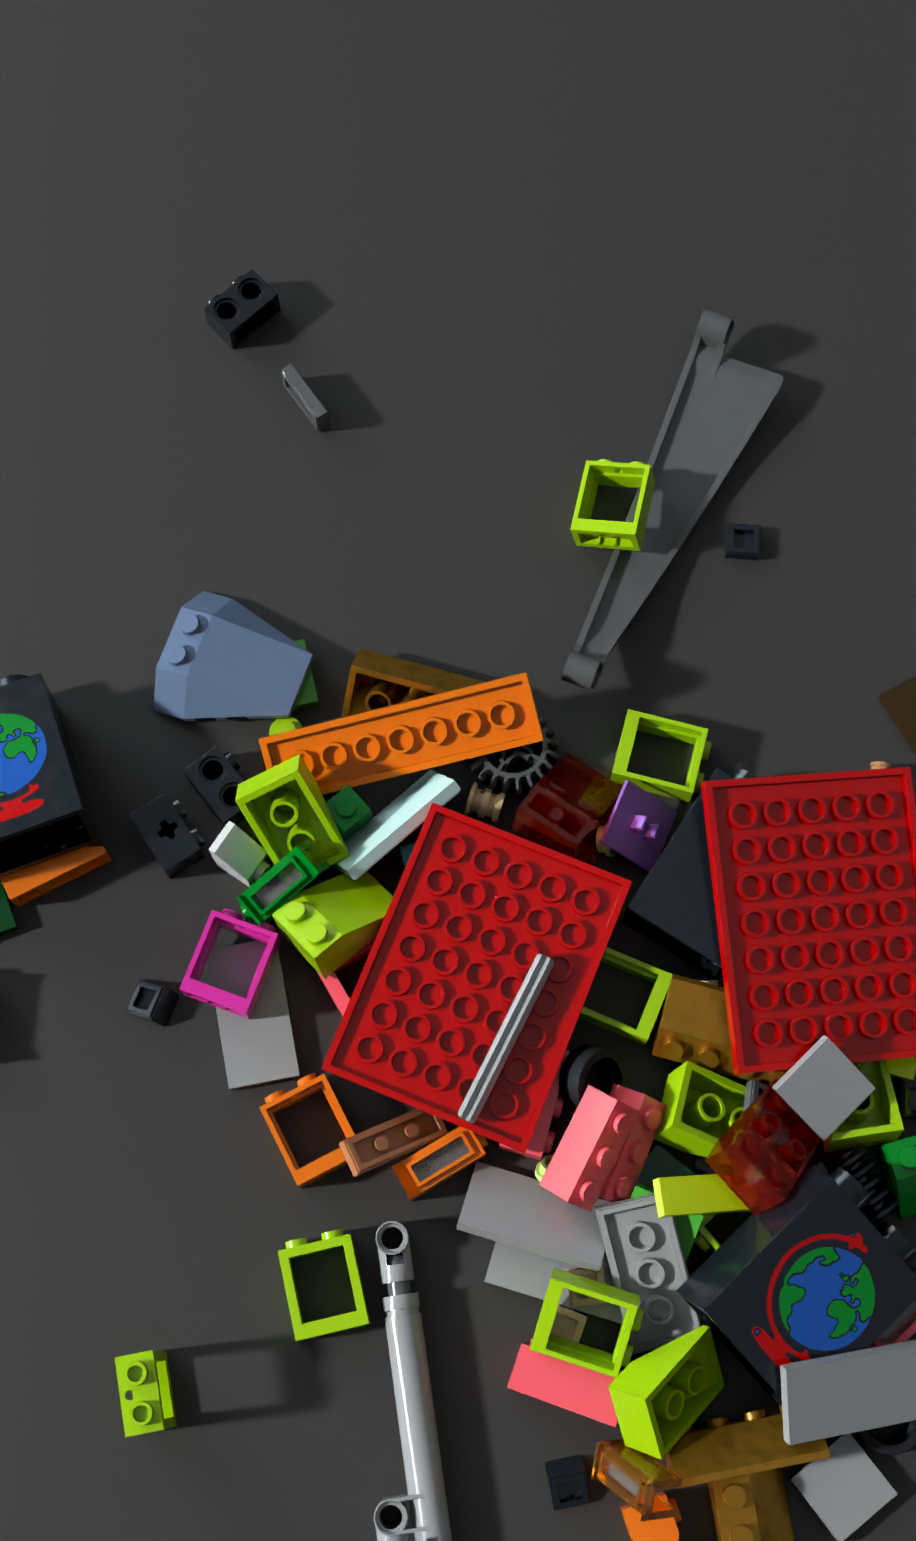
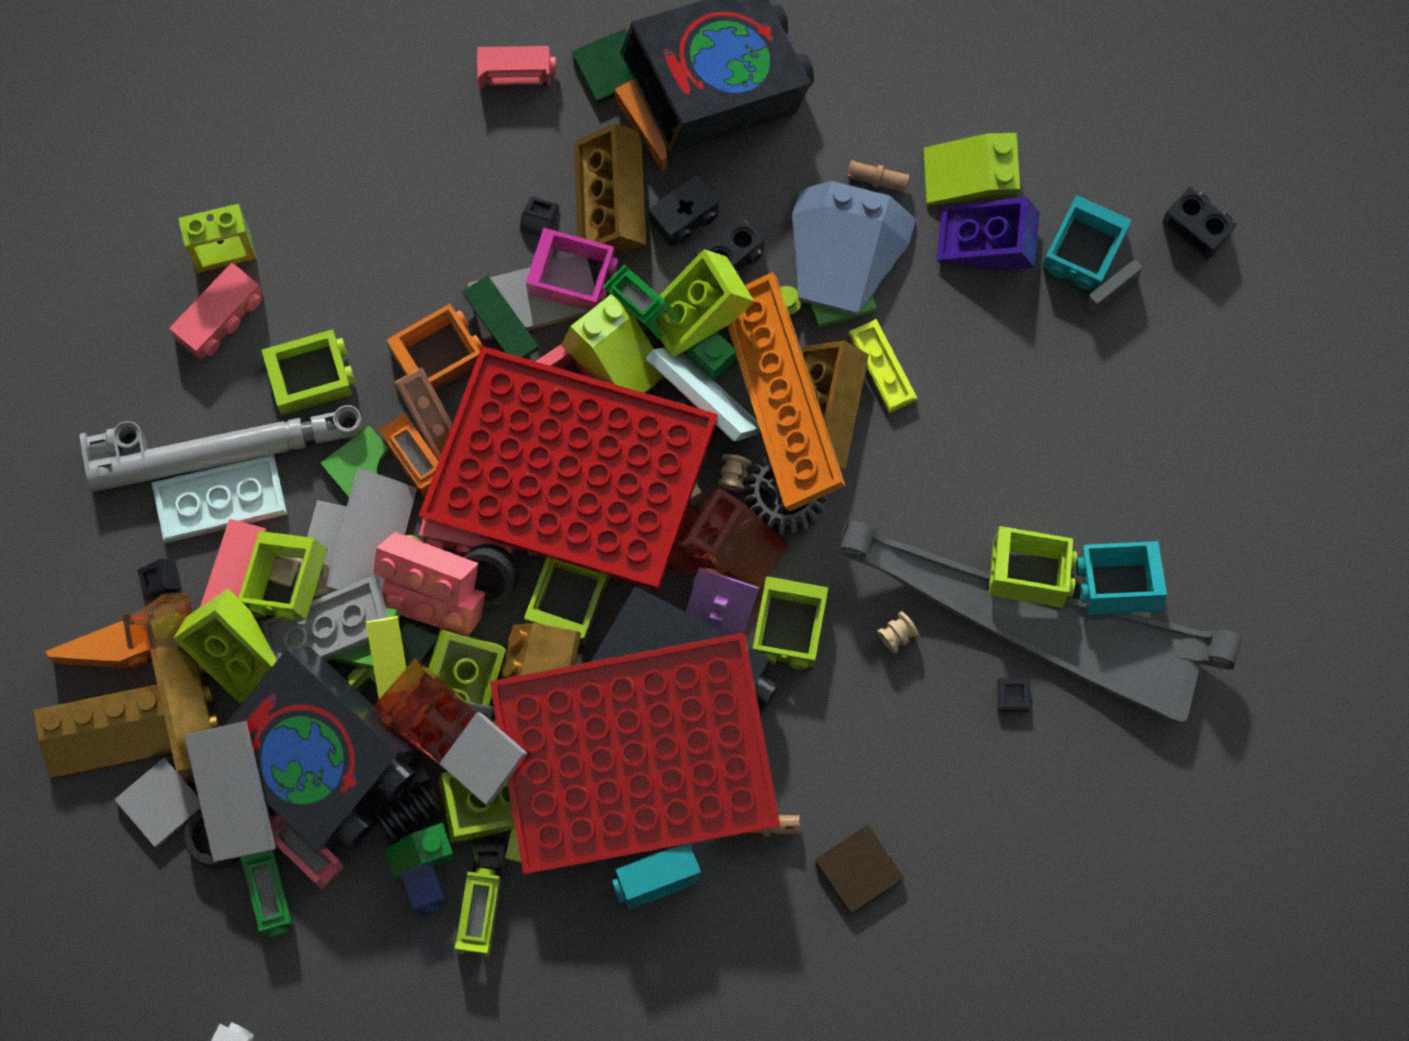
camera: 85 degrees right, 0 degrees up
(132, 917) = (610, 188): none -> pearl gold slope
(150, 623) = (878, 176): none -> medium nougat pin
(155, 524) = (972, 169): none -> lime slope
(228, 401) = (1094, 217): none -> teal window
(231, 516) = (989, 234): none -> dark purple slope
(236, 1398) = (217, 312): none -> coral brick
(239, 855) = (666, 264): white slope -> none
(281, 1051) = (500, 318): none -> dark green tile
(378, 635) = (883, 366): none -> neon yellow tile
(436, 1233) = (362, 451): none -> bright green tile
(472, 1405) = (210, 497): none -> light aqua tile
(506, 1038) = (513, 490): light grey axle -> none
(628, 390) = (1122, 555): none -> teal window
(674, 646) = (898, 632): none -> tan bush

